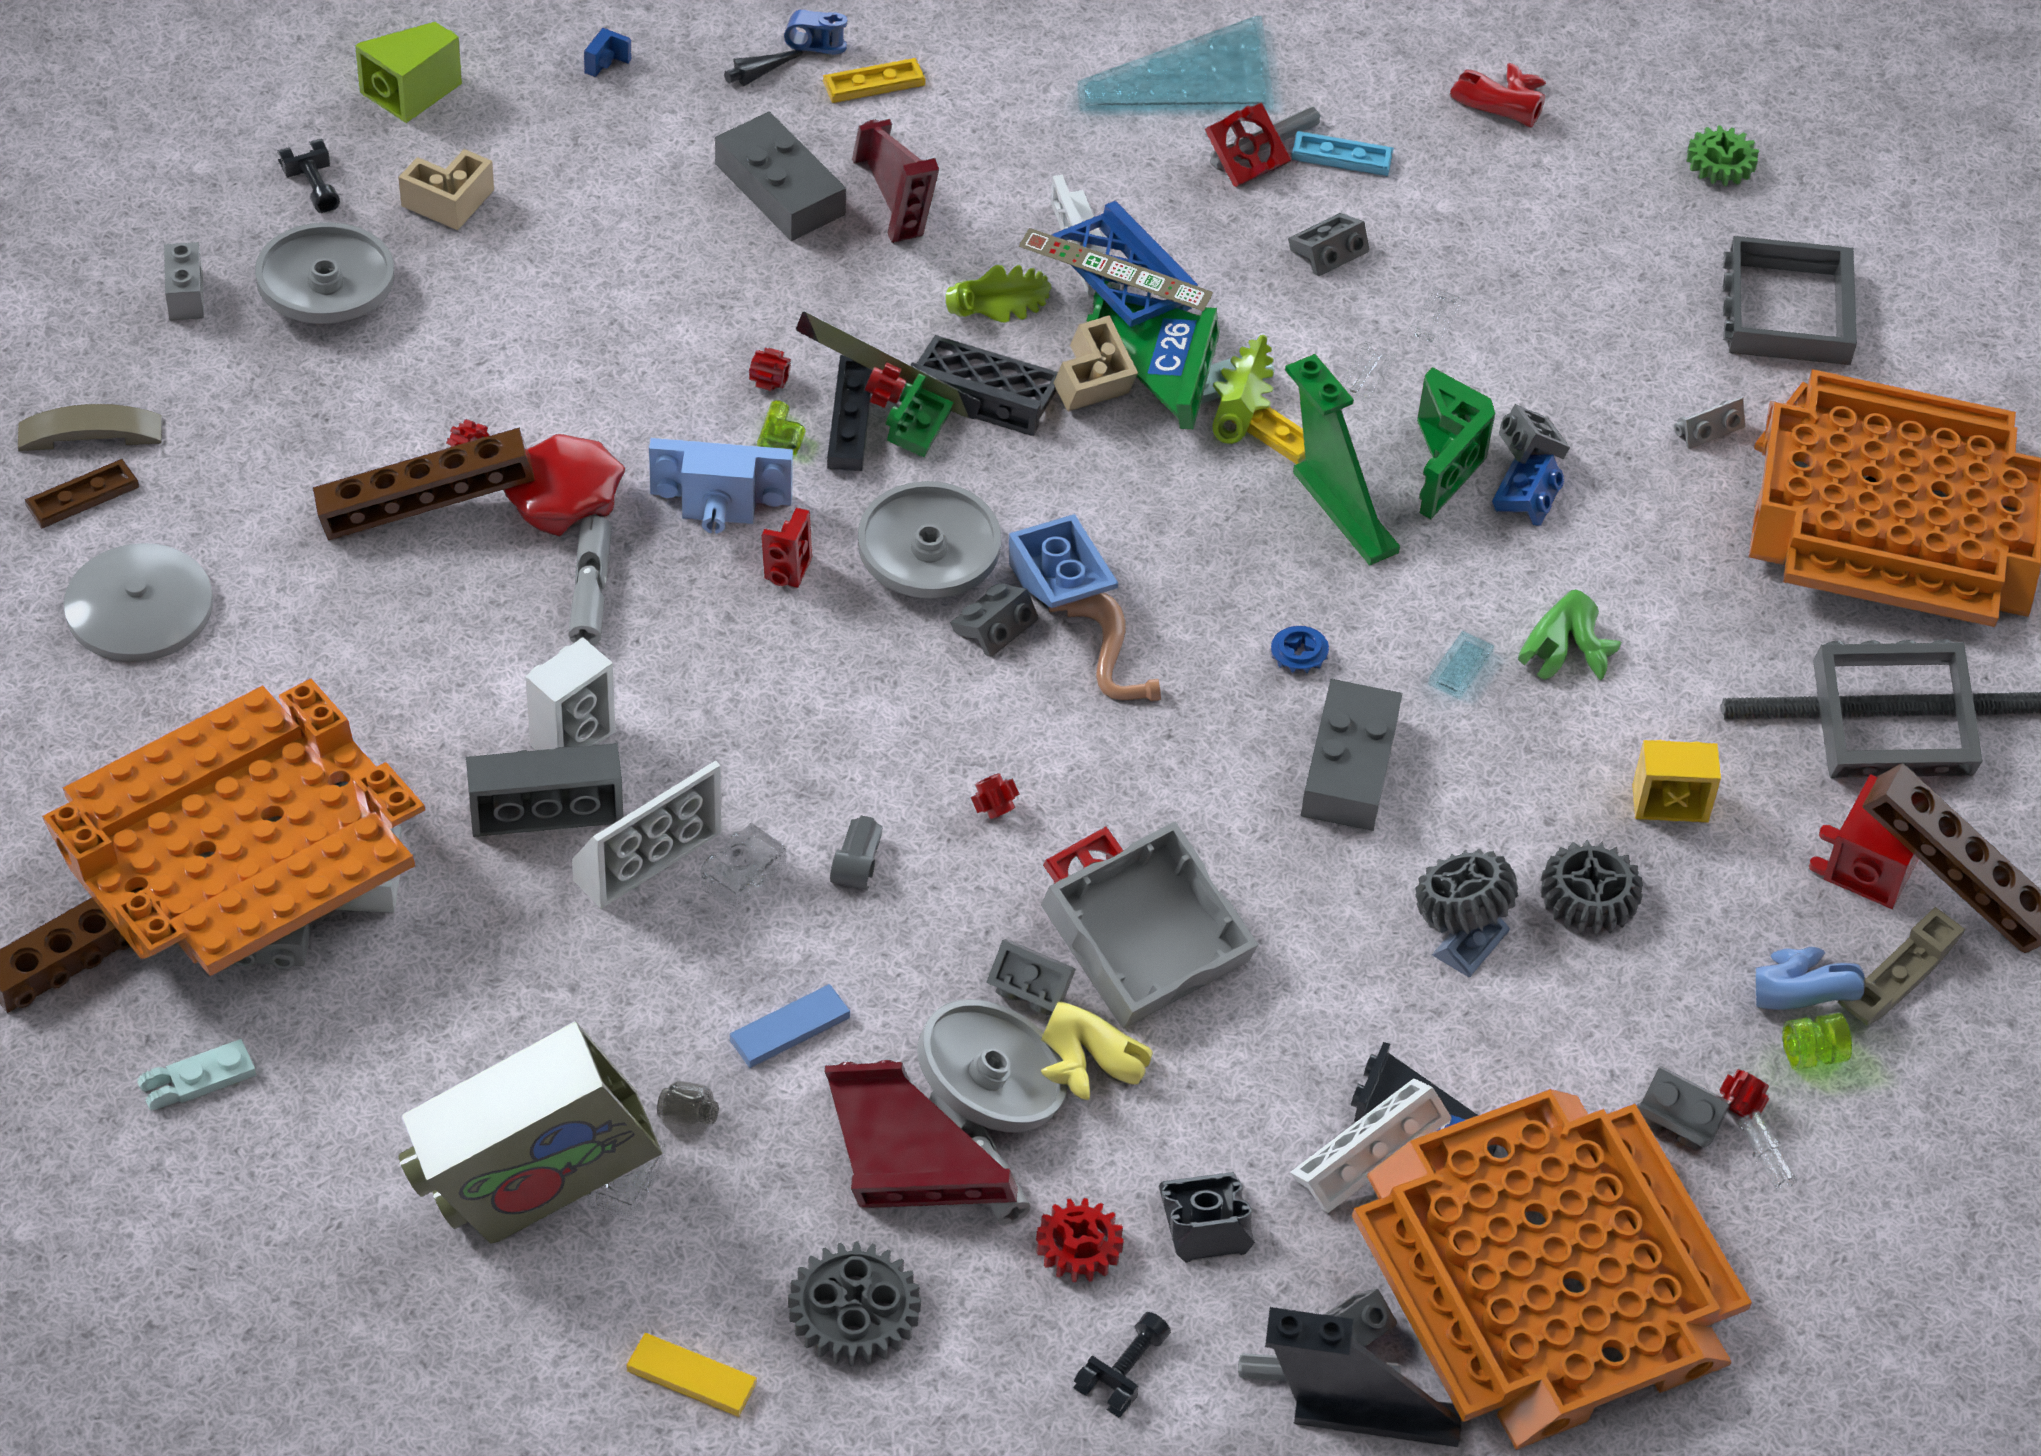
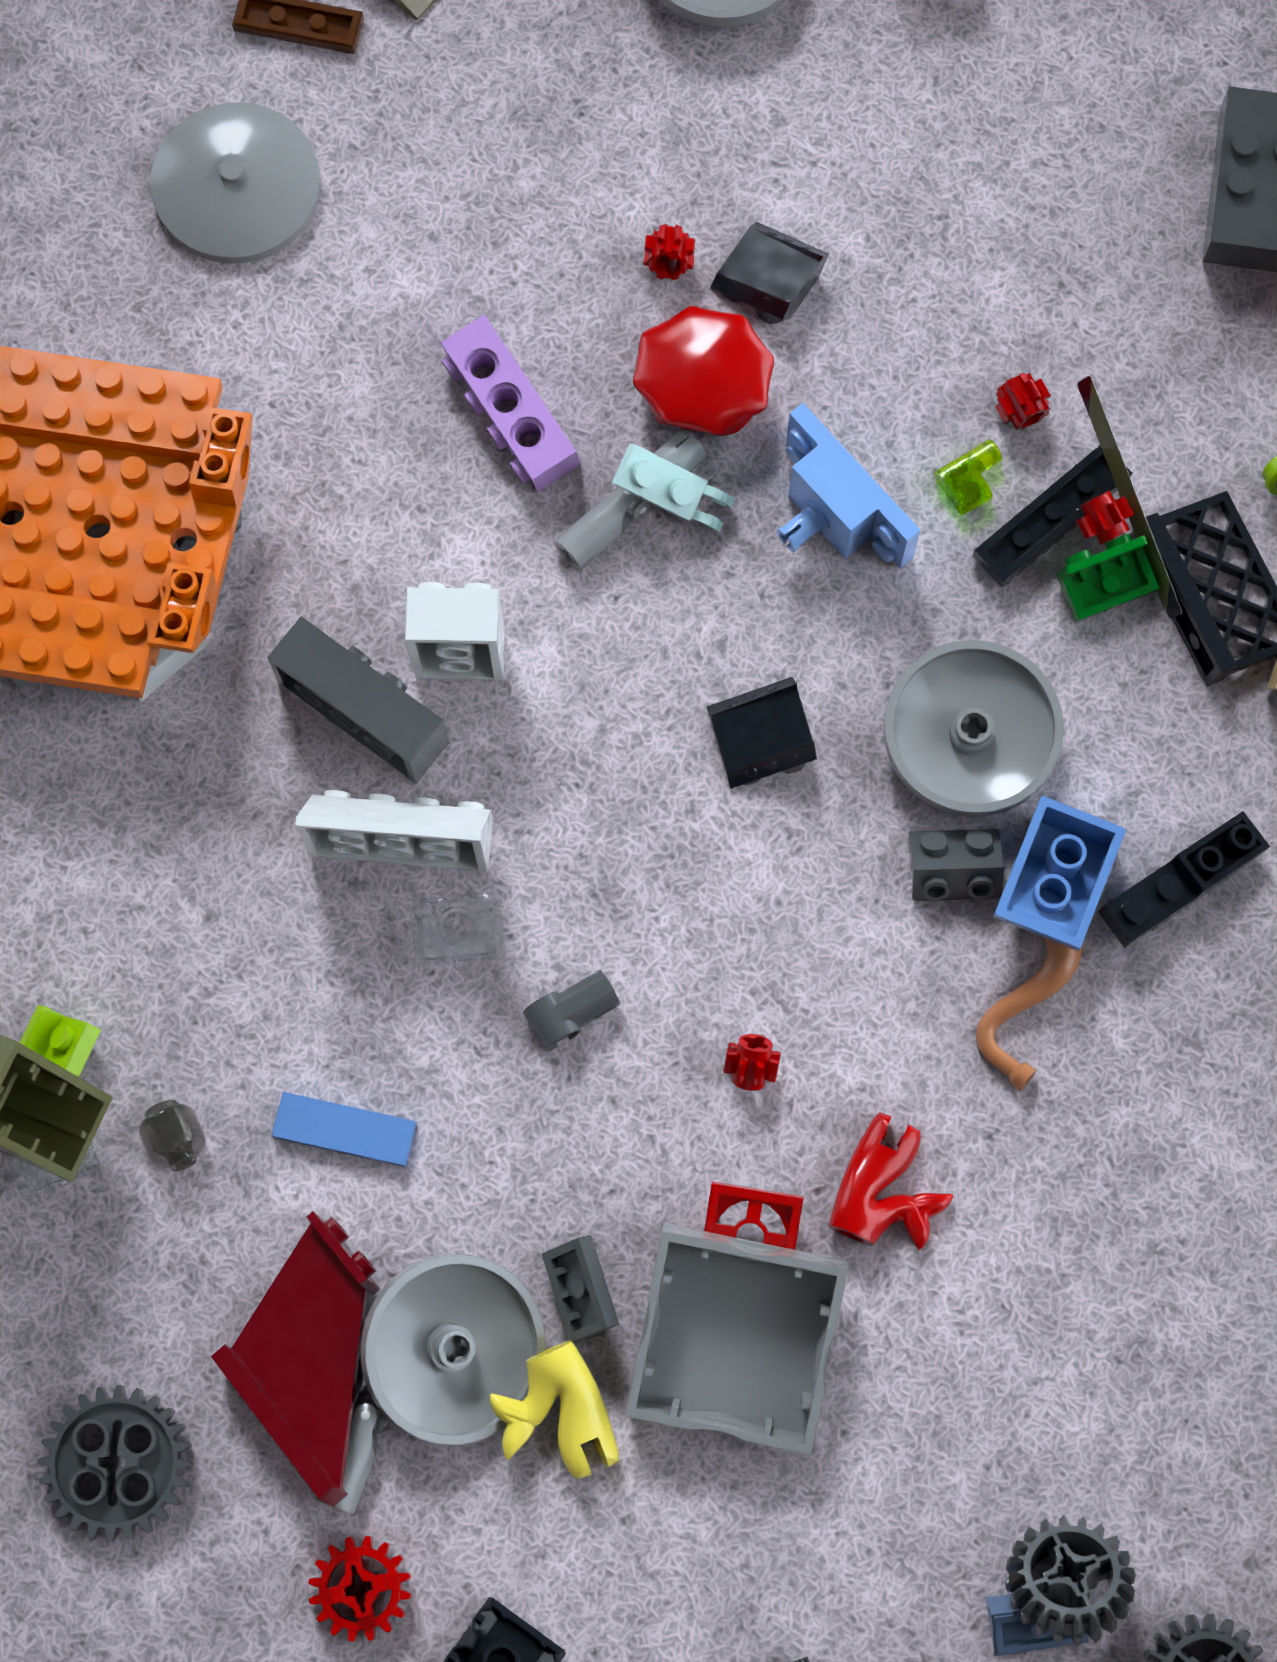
camera: 50 degrees right, 25 degrees up
(423, 484) = (574, 270): reddish brown brick -> none
(474, 577) = (481, 346): none -> lavender brick
(544, 411) = (770, 272): none -> black slope
(612, 550) = (668, 486): none -> light aqua hinge
(789, 551) = (830, 635): red bracket -> none
(808, 635) = (762, 733): none -> black slope
(1125, 798) = (871, 1171): none -> red piece
(1132, 524) = (1184, 879): none -> black slope
(1290, 639) = (1213, 1138): blue gear -> none
(1351, 754) = (1128, 1324): dark grey brick -> none

